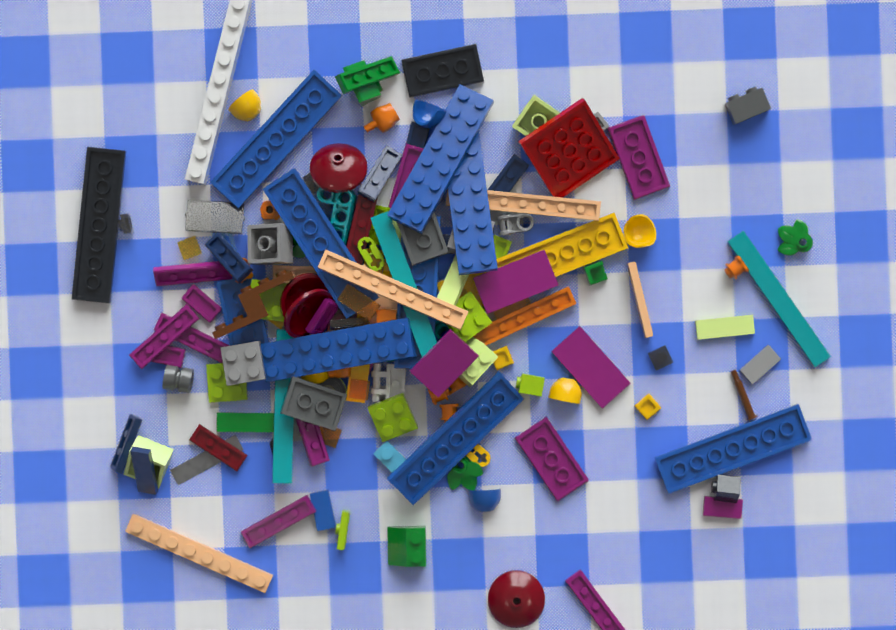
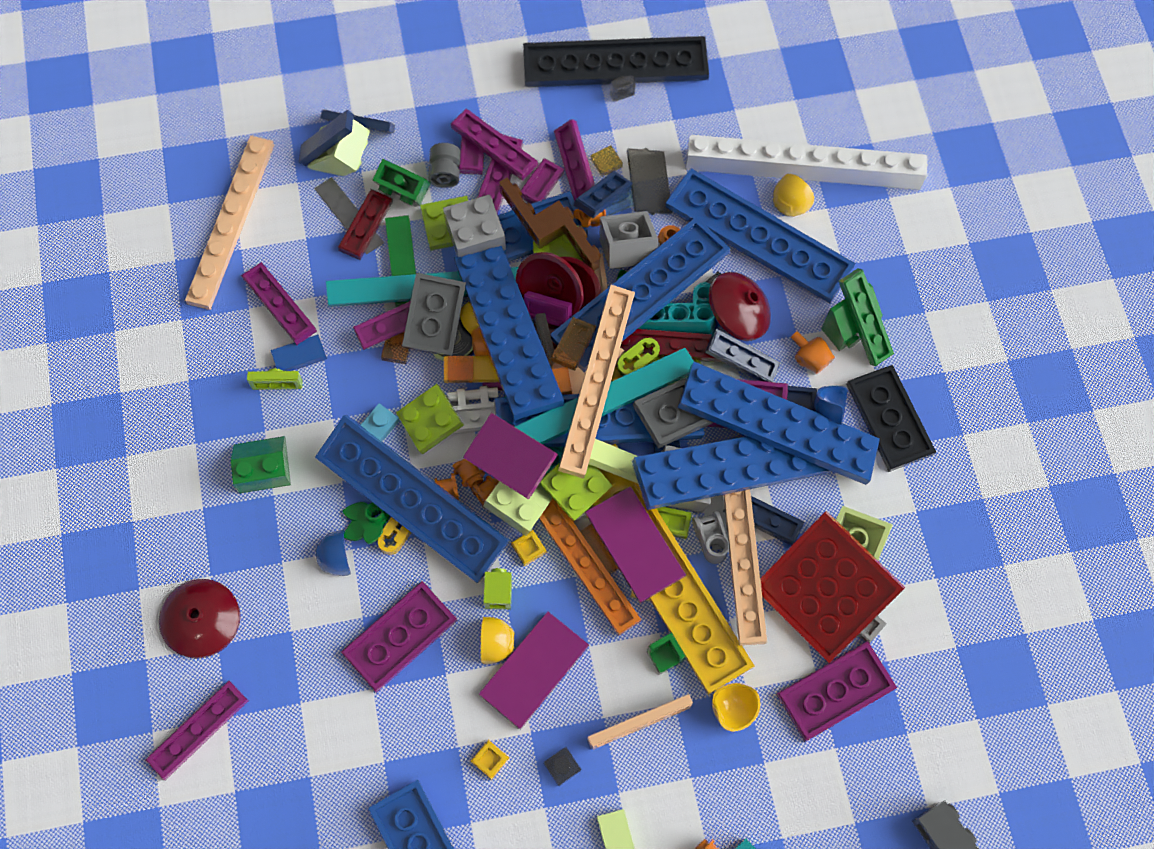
camera: 85 degrees right, 20 degrees down
(190, 415) = (400, 181): none -> green brick

